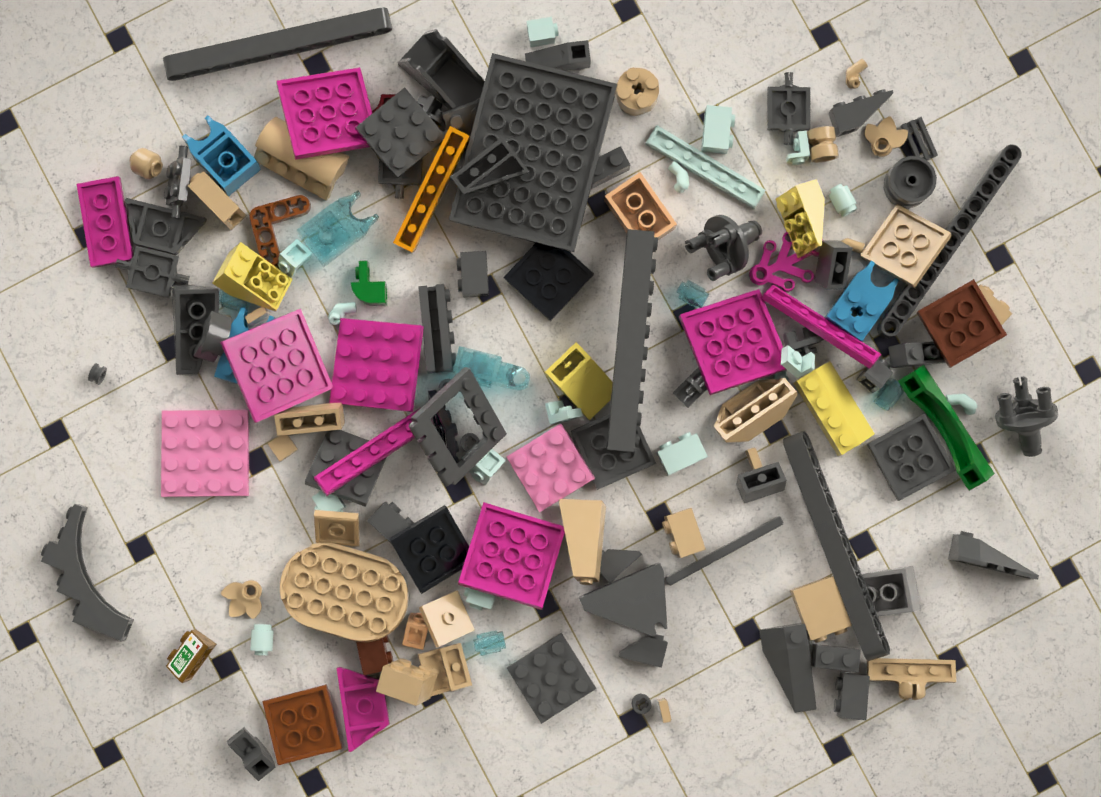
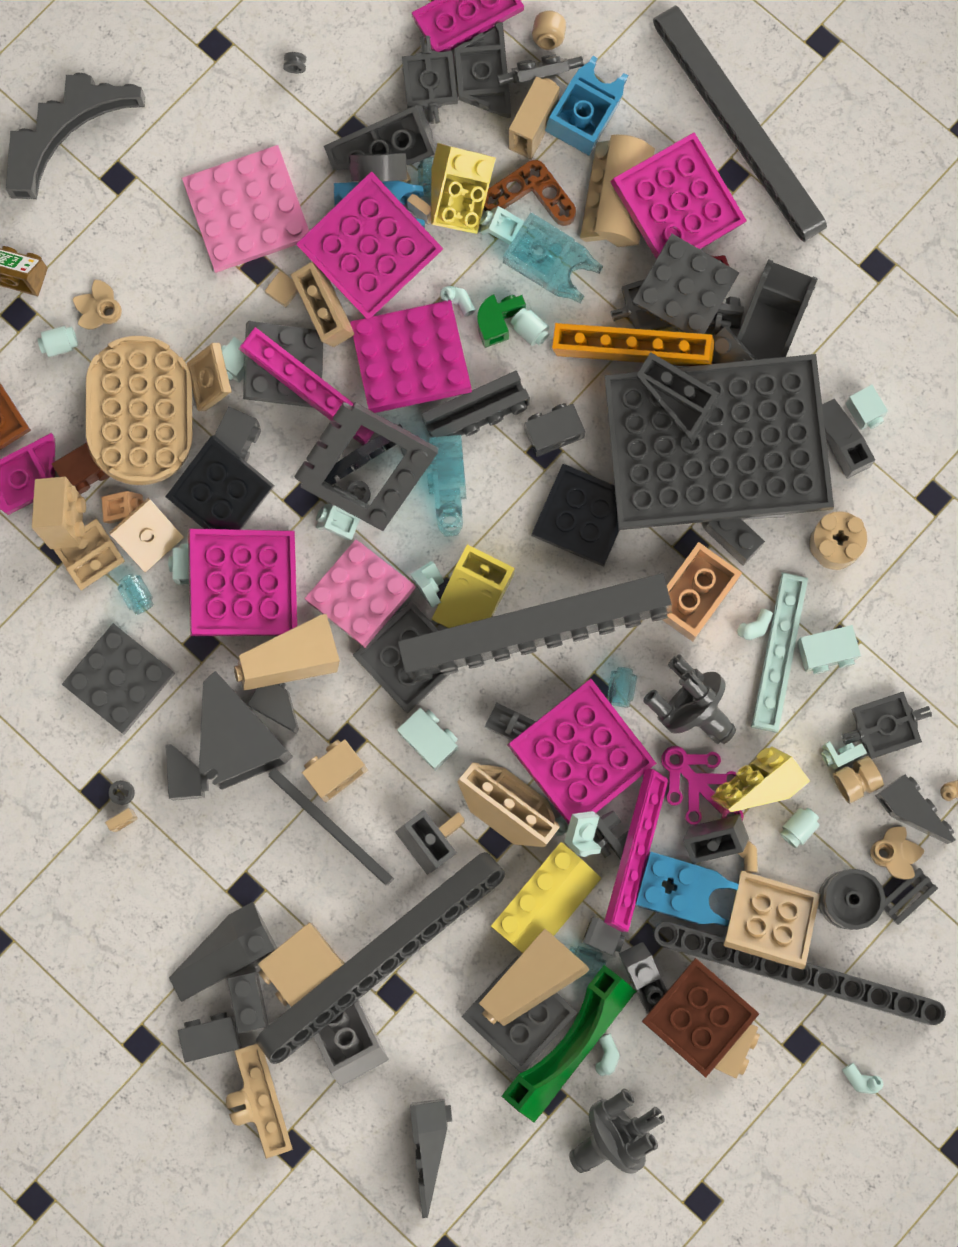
camera: 75 degrees right, 5 degrees down
(385, 263) = (530, 327): none -> light aqua brick
(891, 435) = (533, 978): none -> tan slope
(1042, 224) = (862, 1083): none -> light aqua arm

